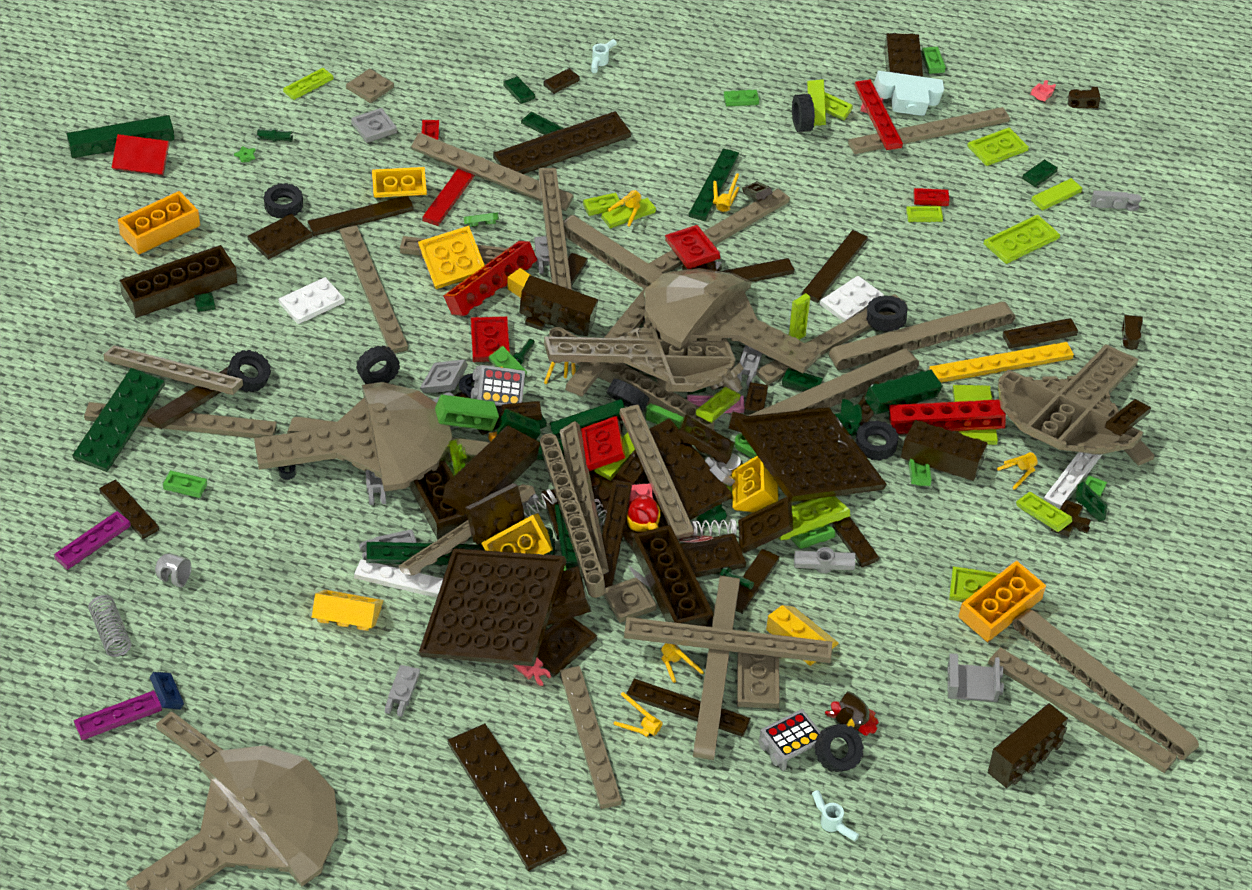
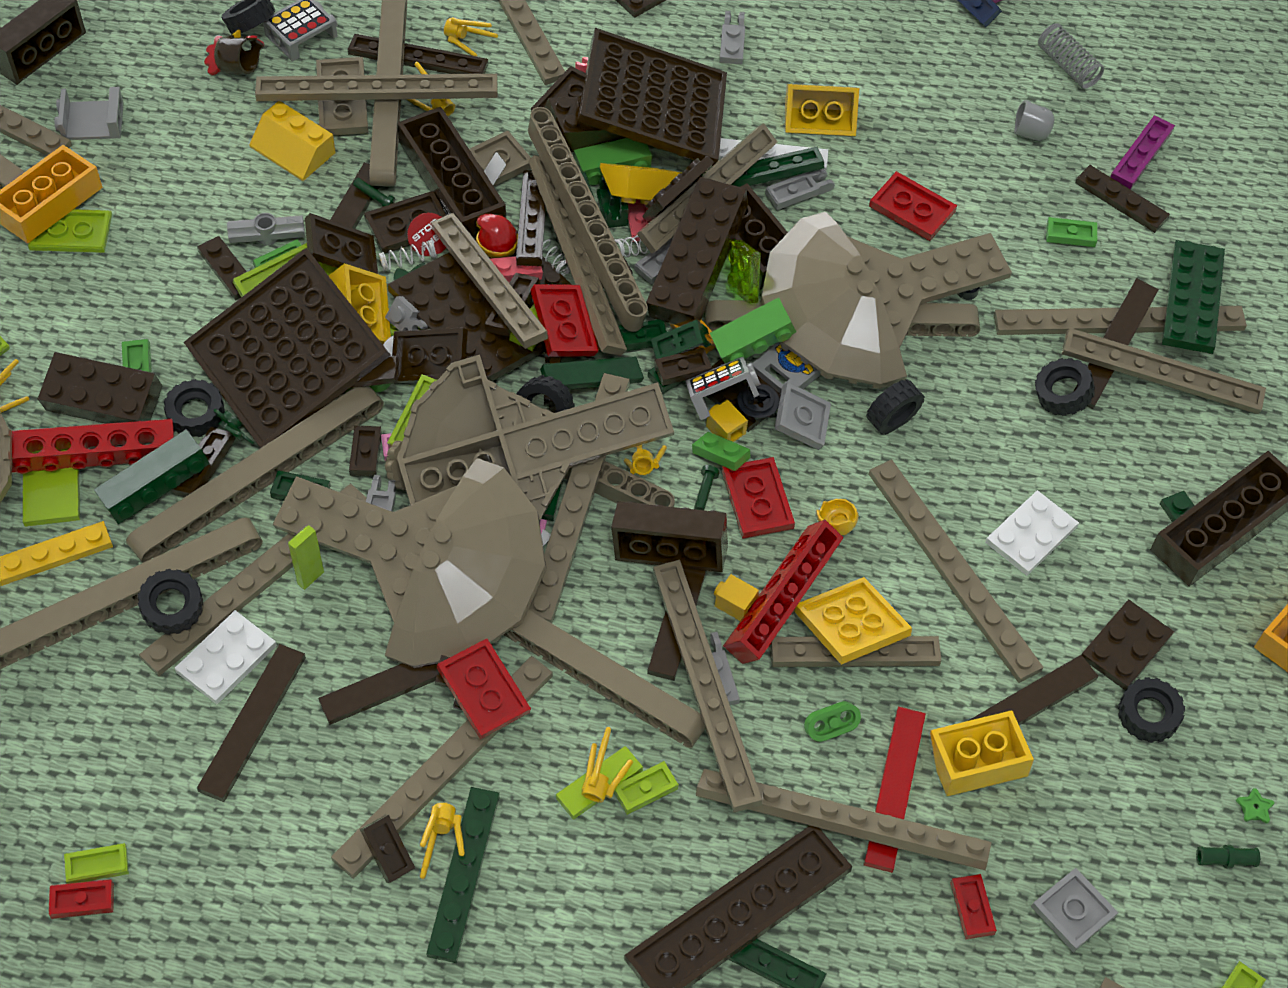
camera: 170 degrees right, 10 degrees up
(302, 519) = (913, 206): none -> red plate
(441, 314) = (839, 514): none -> yellow hair

